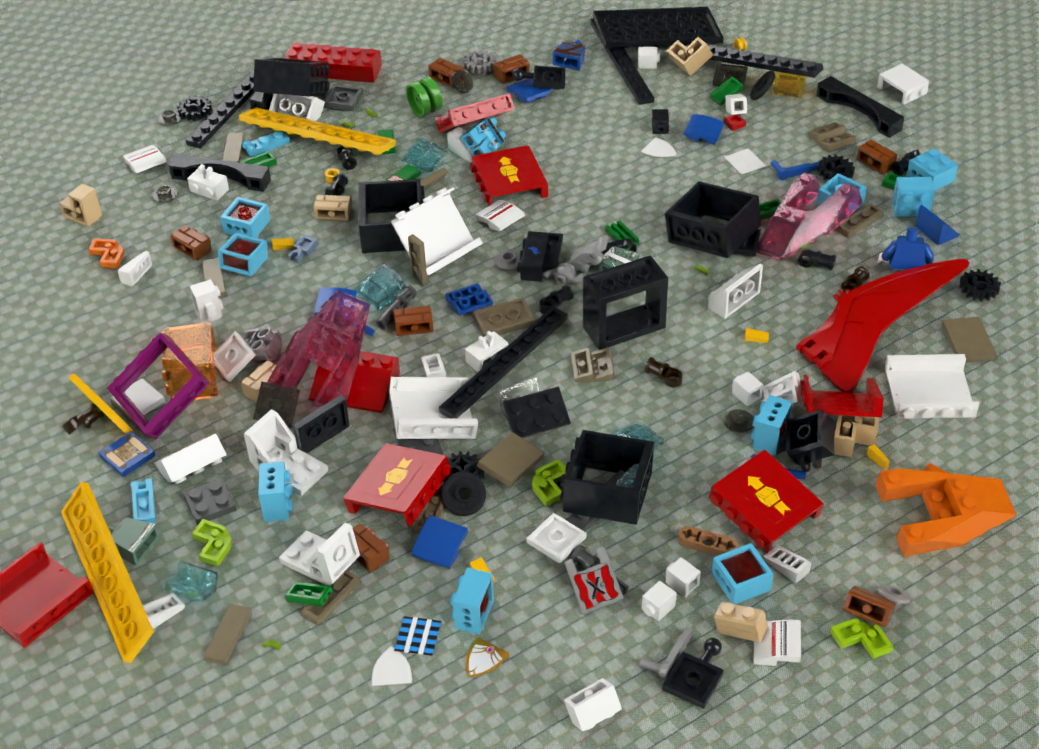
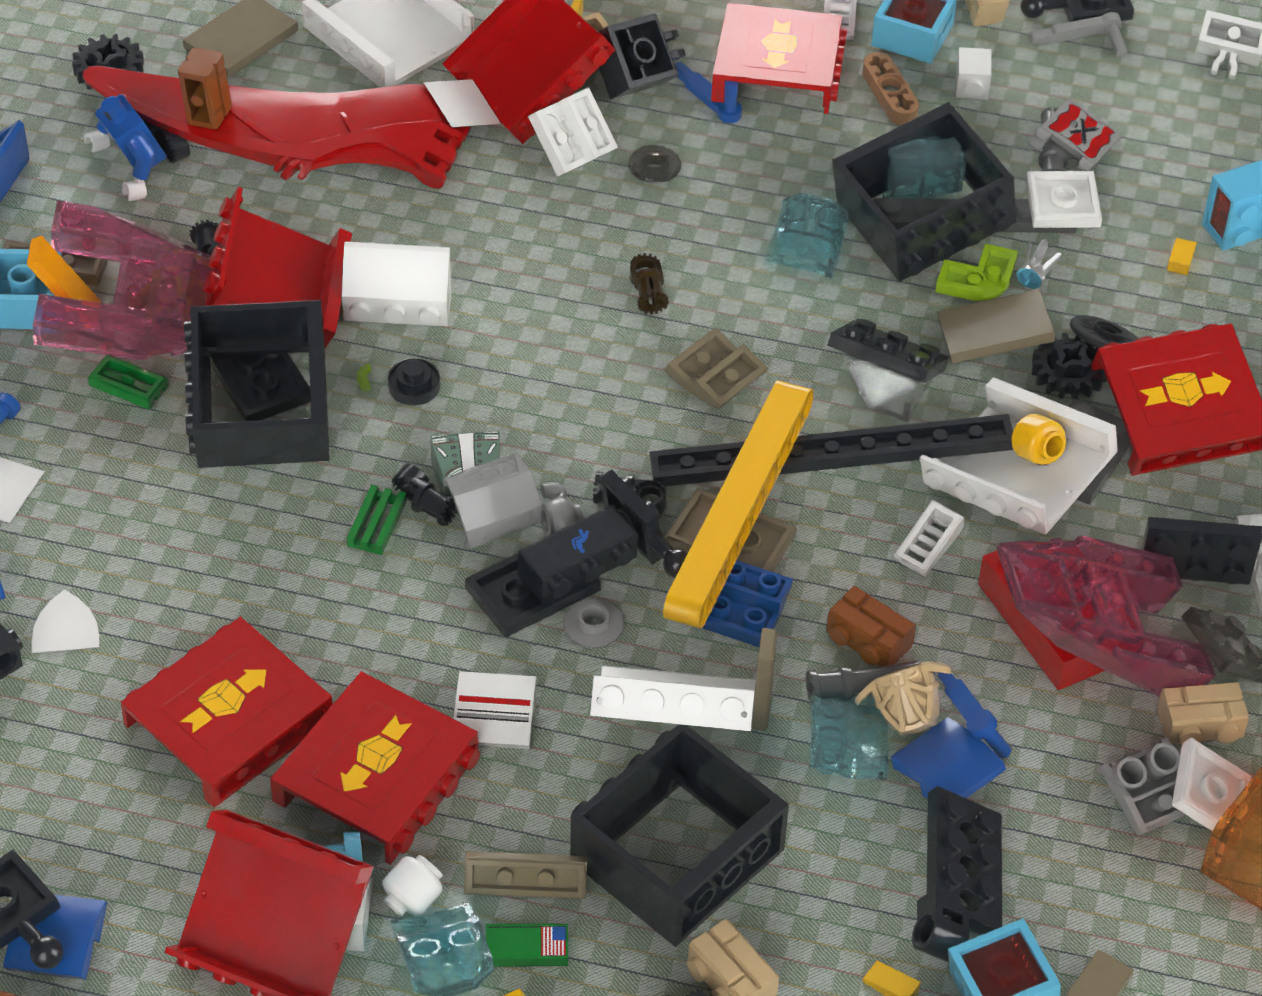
camera: 135 degrees left, 5 degrees up
(206, 301) = (1163, 918): white brick -> none
(301, 270) = (940, 914): none -> black hinge
(303, 246) = (872, 929): sand blue plate -> none
(375, 296) = (908, 697): none -> tan piece
(428, 408) = (1038, 439): none -> yellow head
(439, 541) = (1199, 302): blue slope -> none
(453, 160) = (412, 886): none -> white head
(484, 350) = (833, 491): white brick -> none
(507, 310) = (738, 505): none -> yellow beam
(525, 274) = (644, 519): none -> black plate
(529, 501) = (1032, 272): none -> flat silver piece
(574, 153) = (229, 708): none -> red panel
(619, 283) = (609, 308): black window -> none
(658, 601) = (1032, 73): white brick -> none
(680, 275) = (414, 381): none -> black plate
(747, 388) = (588, 180): white brick -> none
(756, 335) = (457, 240): yellow piece -> none
(771, 424) = (645, 106): medium azure piece -> none
(783, 252) = (273, 264): none -> red panel
(828, 185) = (56, 272): none -> light orange tile
(843, 376) = (462, 103): none -> white sticker
(850, 282) = (220, 187): dark brown connector -> none
(905, 269) = (204, 88): none -> dark orange brick

